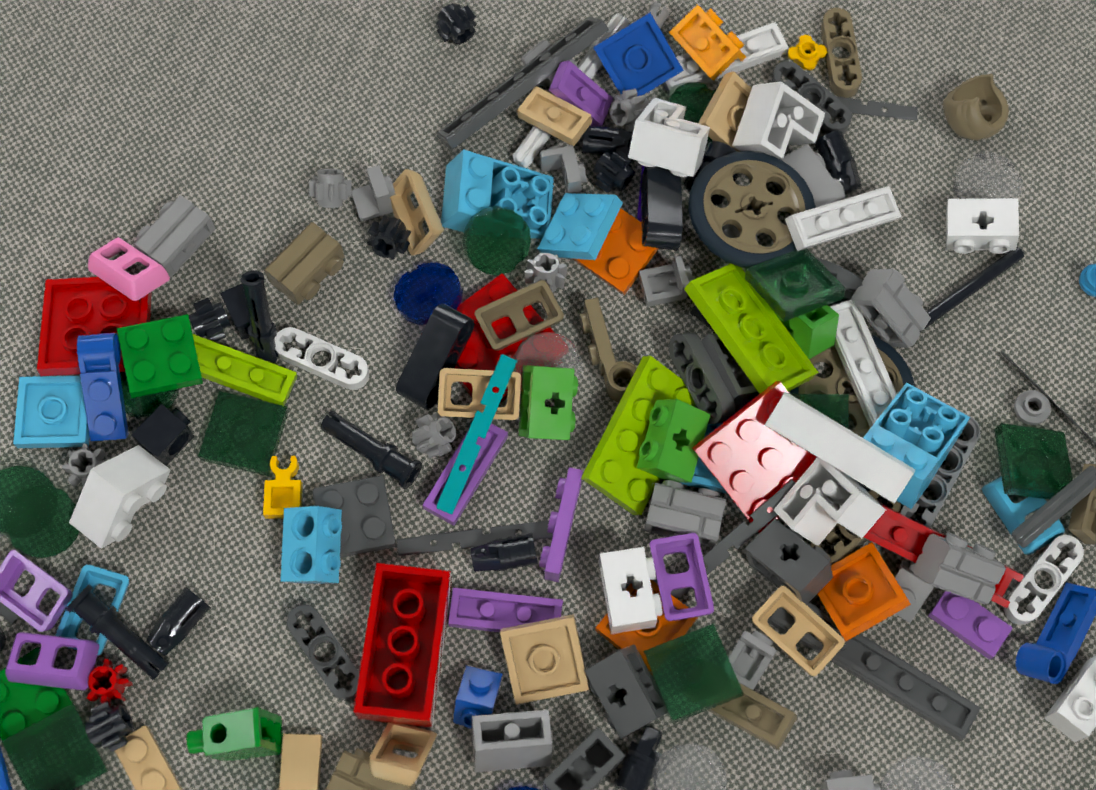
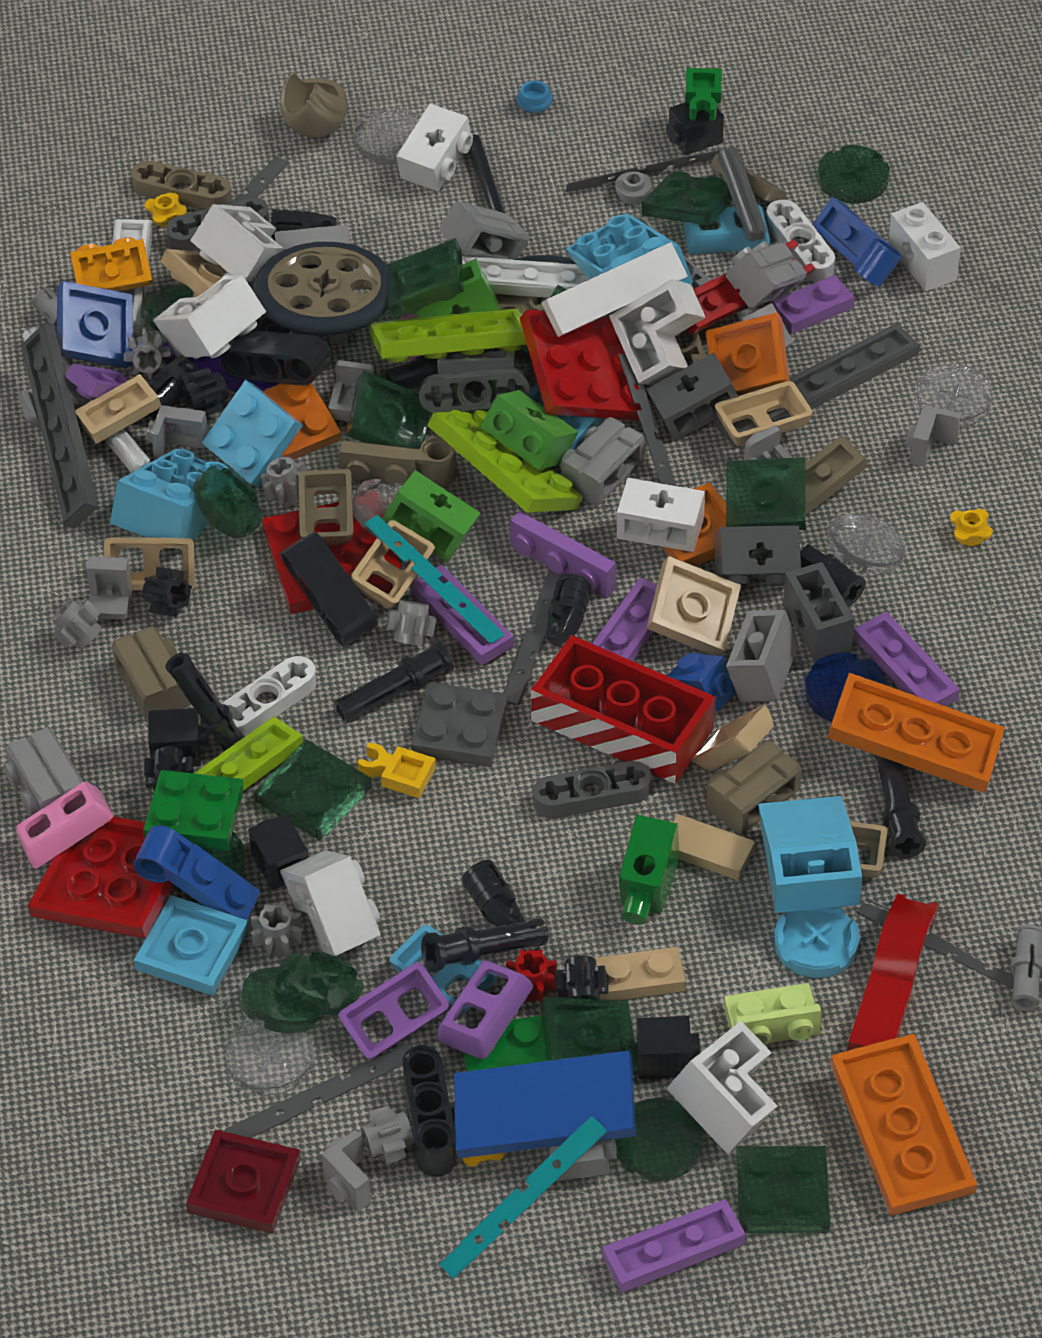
camera: 65 degrees left, 20 degrees down
(311, 545) = (474, 757): medium azure brick -> none
(425, 289) = (249, 583): clear blue tile -> none
(646, 320) = (386, 414): none -> clear green plate
(694, 578) = (669, 466): medium lavender piece -> none
(842, 218) = (371, 232): white tile -> none

